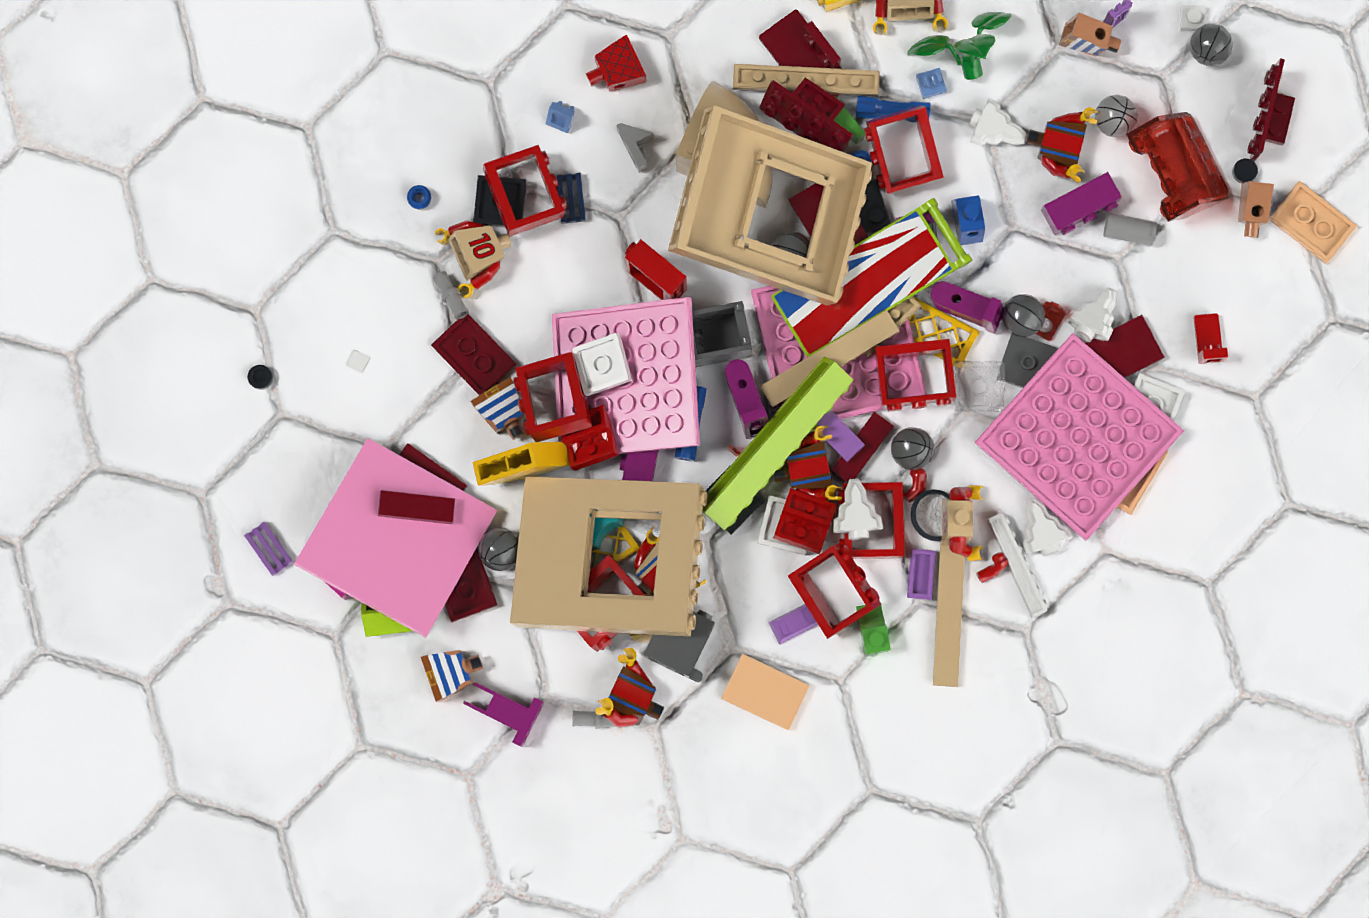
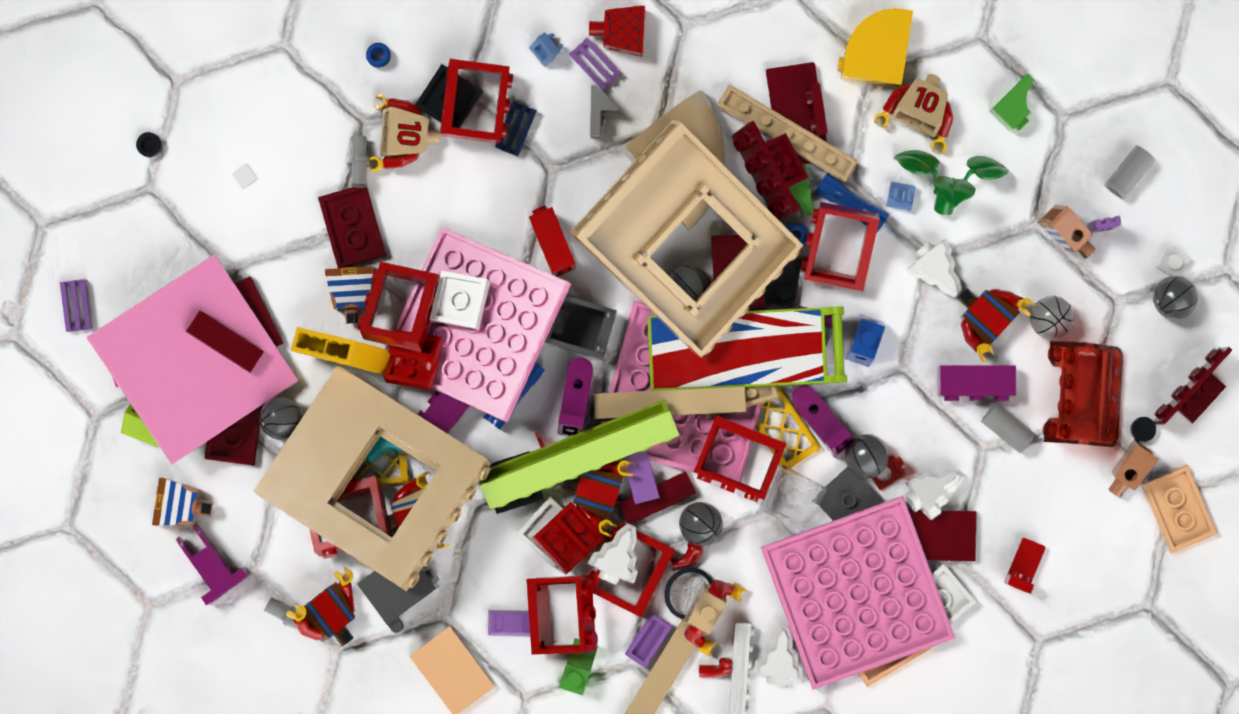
camera: 25 degrees right, 5 degrees up
(590, 101) = (580, 48): none -> medium lavender tile

